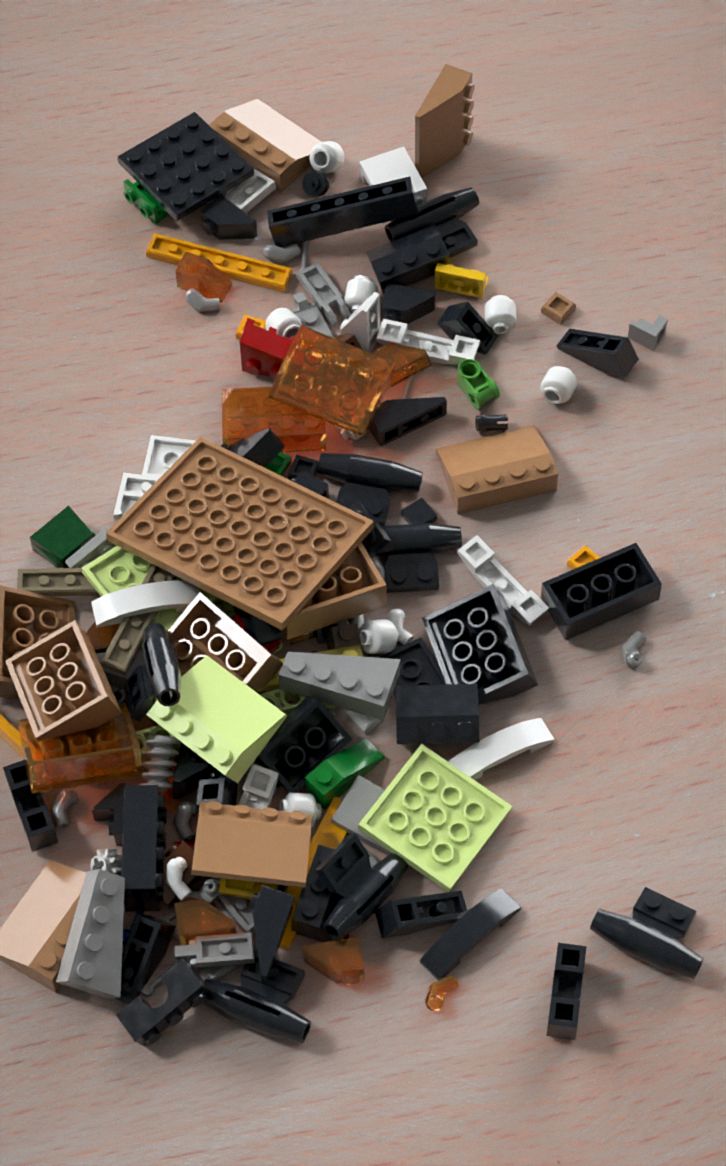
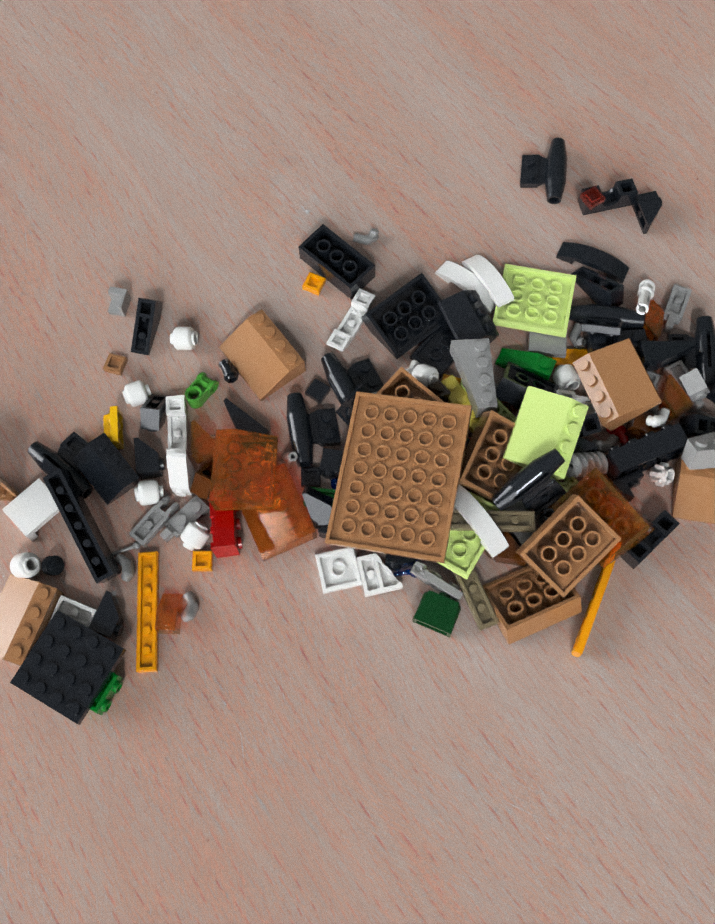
camera: 110 degrees left, 10 degrees up
(200, 940) = (694, 385): none -> light grey brick
(335, 446) = (287, 458): none -> arm
(346, 1009) = (675, 306): none -> light grey hinge
(378, 964) = (645, 294): none -> white pin
(437, 990) = (638, 265): clear orange arm -> none
(492, 765) = (490, 278): none -> white slope
(523, 1045) = (646, 209): none -> black slope
(561, 949) = (592, 197): none -> clear red tile

